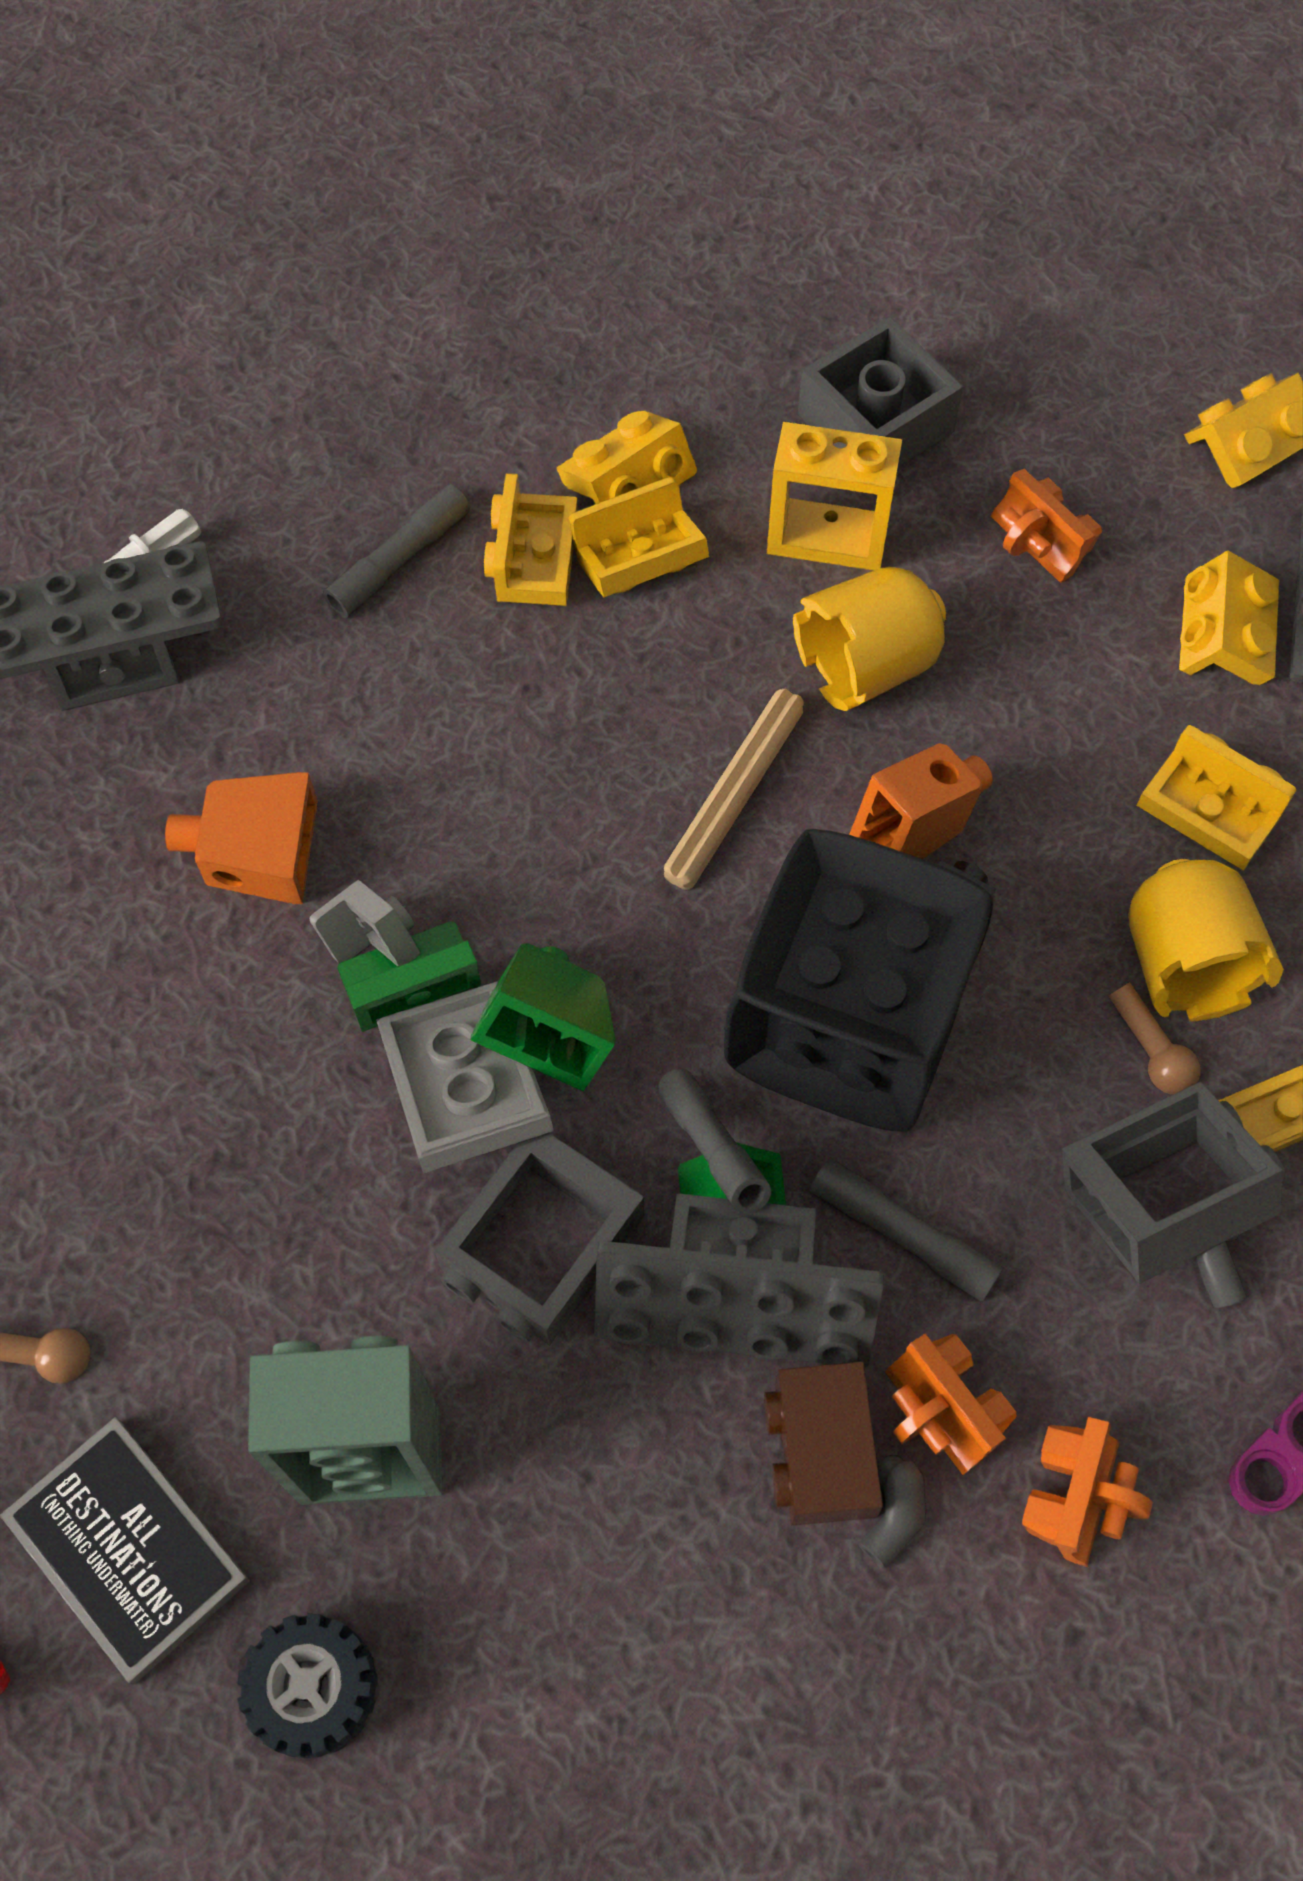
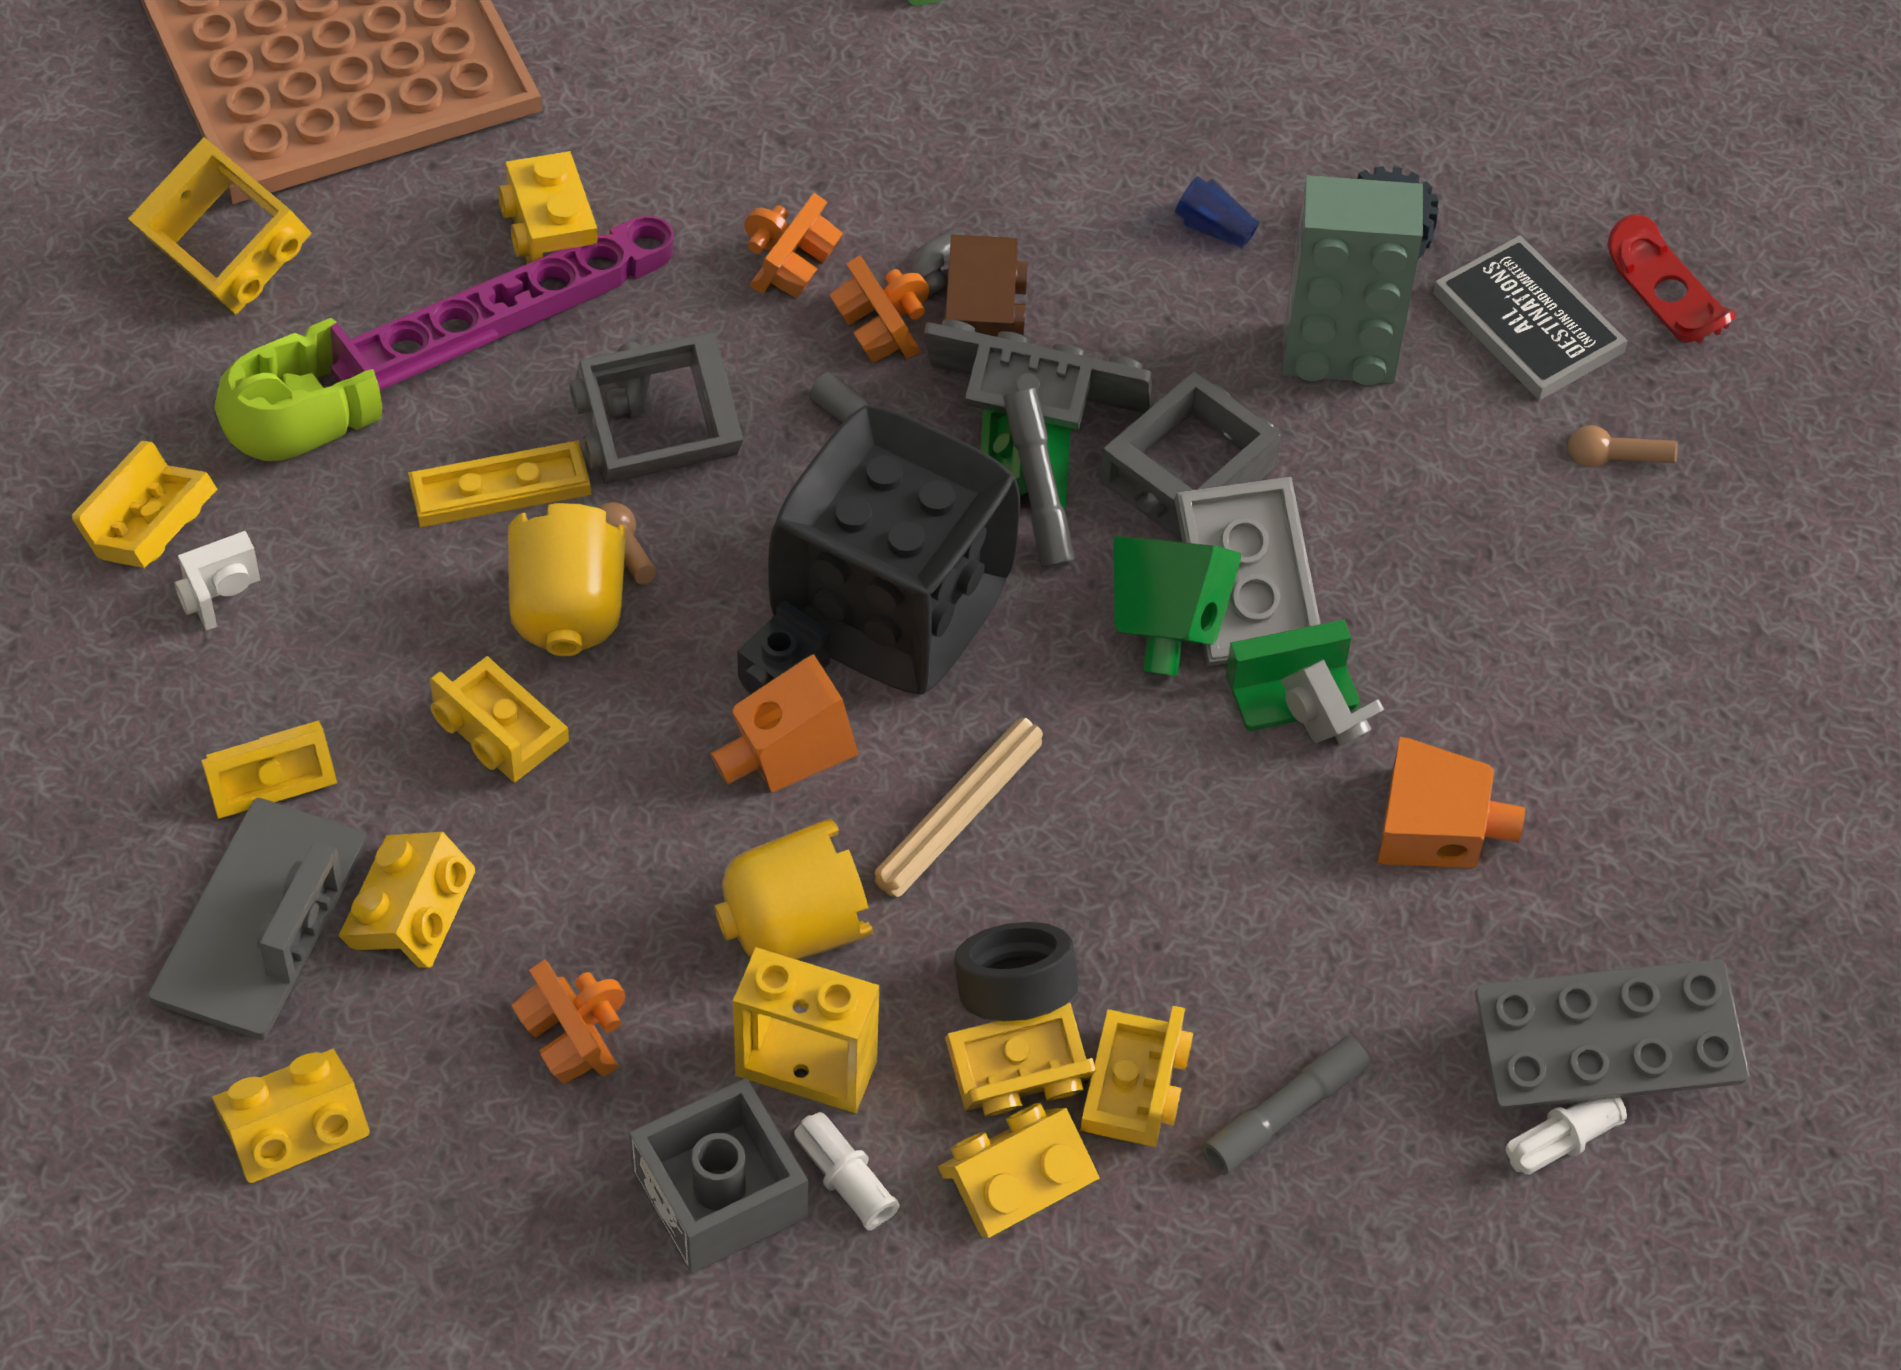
camera: 175 degrees left, 10 degrees down
(541, 1651) = (1215, 213): none -> clear blue cone
(697, 589) = (1016, 971): none -> black tyre
(755, 433) = (846, 1170): none -> white axle

